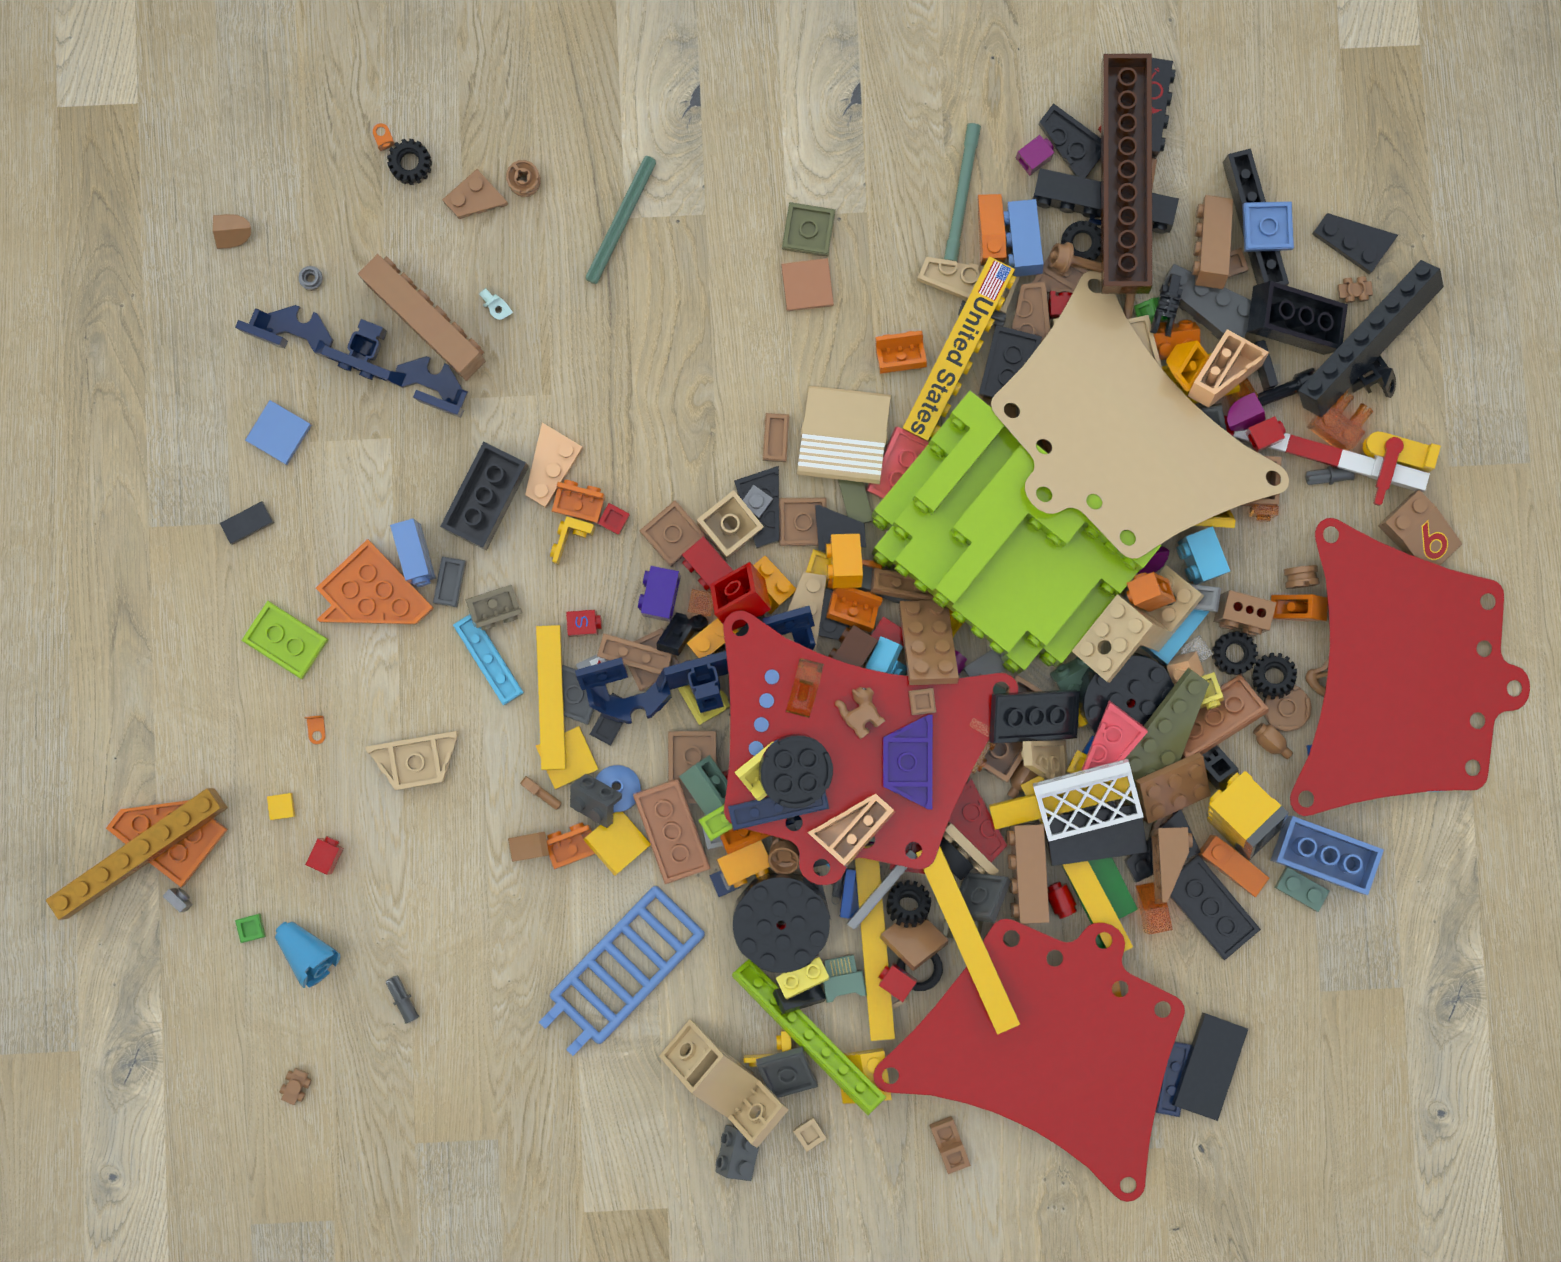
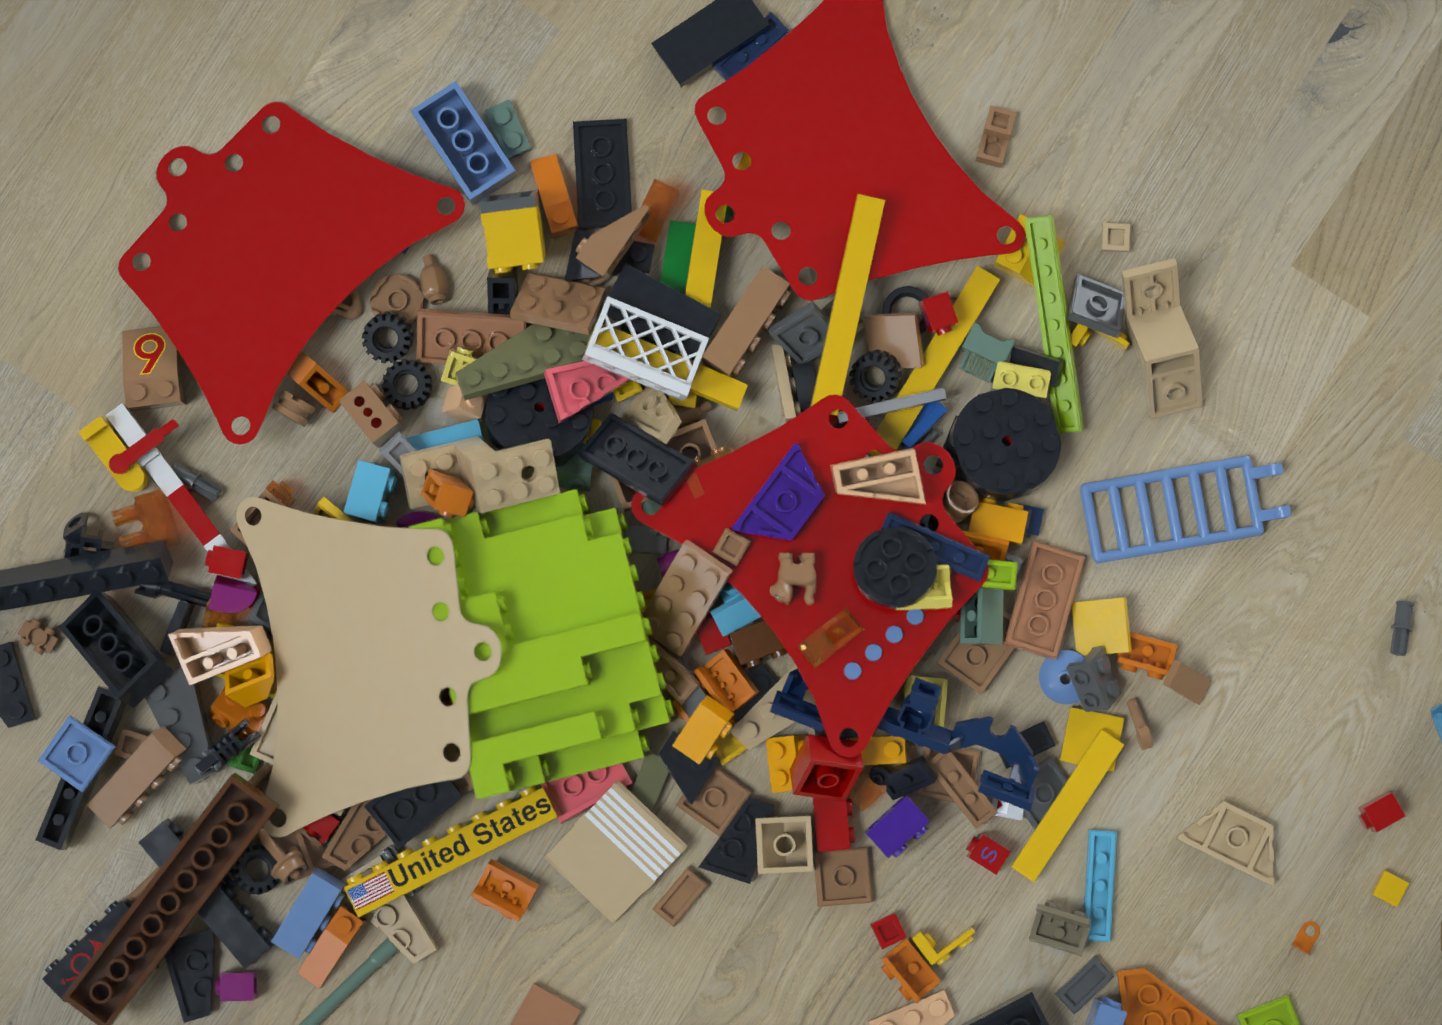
camera: 140 degrees left, 0 degrees up
(736, 1155) = (1196, 266): dark grey bracket -> none
(757, 501) = (743, 848): flat silver plate -> none
(975, 822) = (761, 403): red wing -> none
(1061, 900) = (733, 279): red brick -> none

